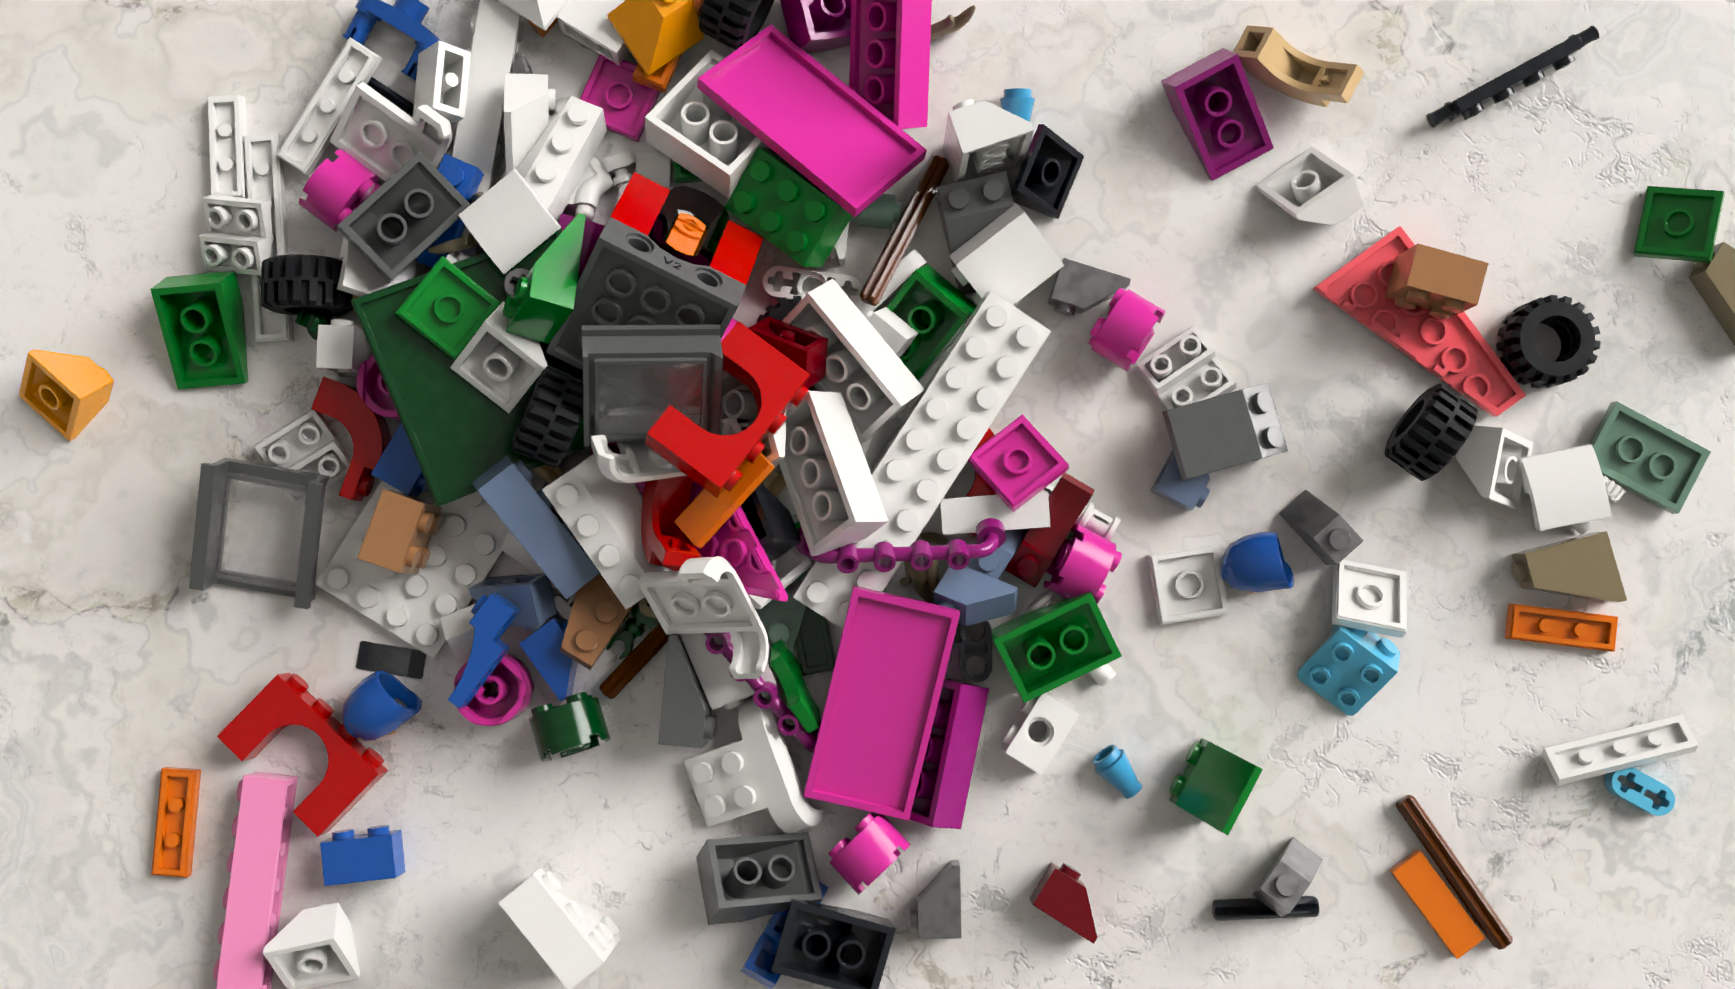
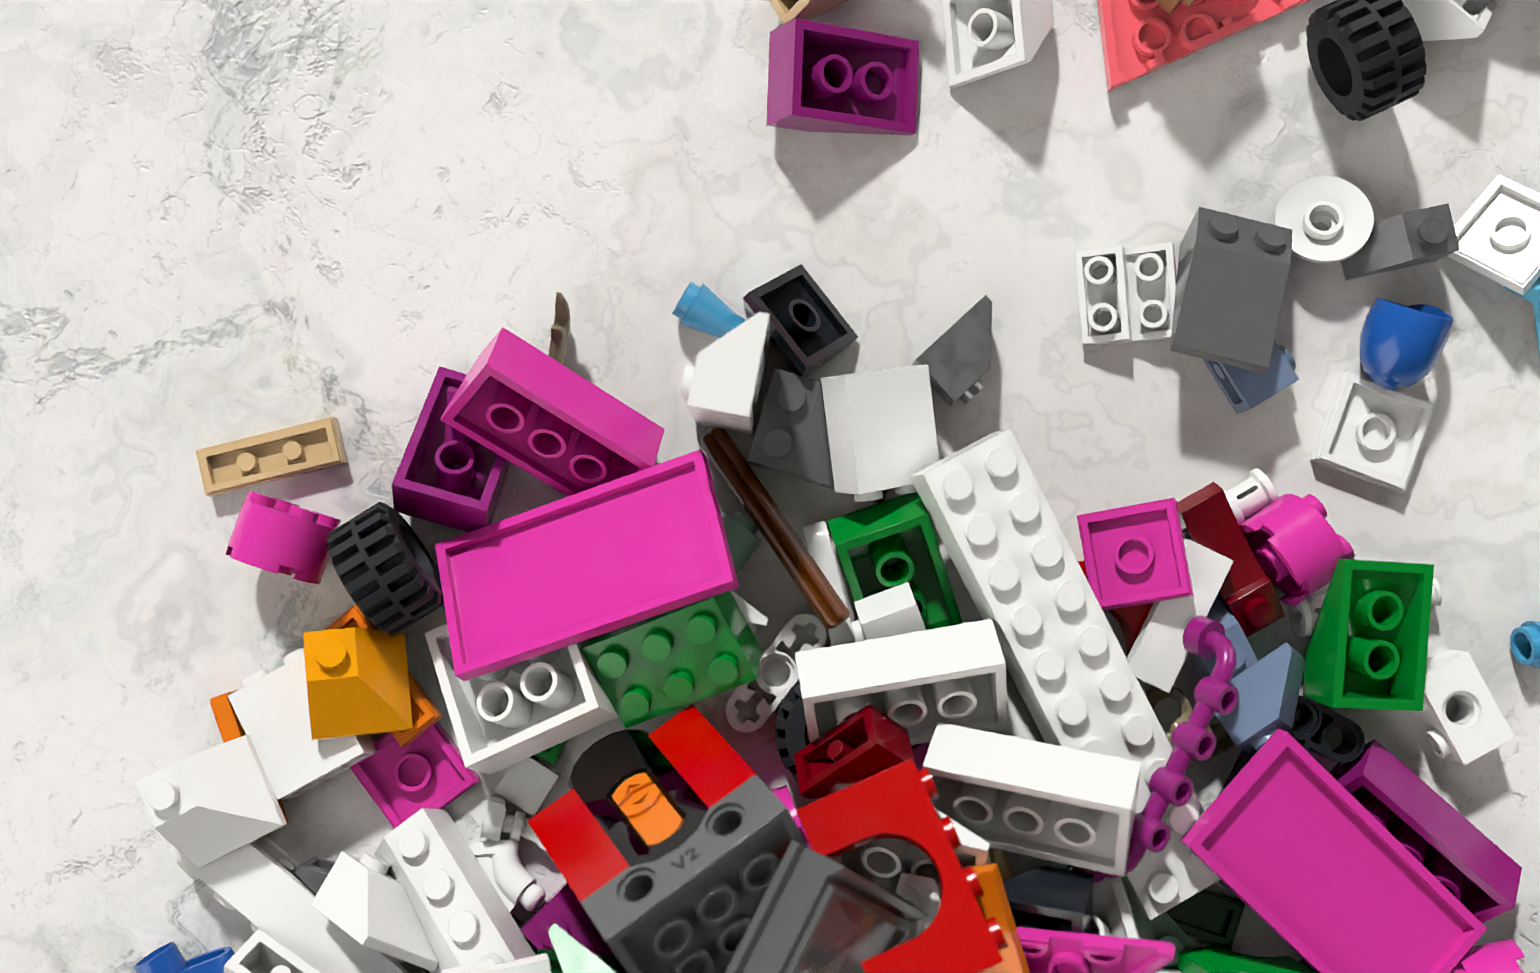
camera: 60 degrees left, 0 degrees up
(1126, 329) = (1042, 334): dark pink brick -> none
(1319, 464) = (1331, 202): none -> white dish

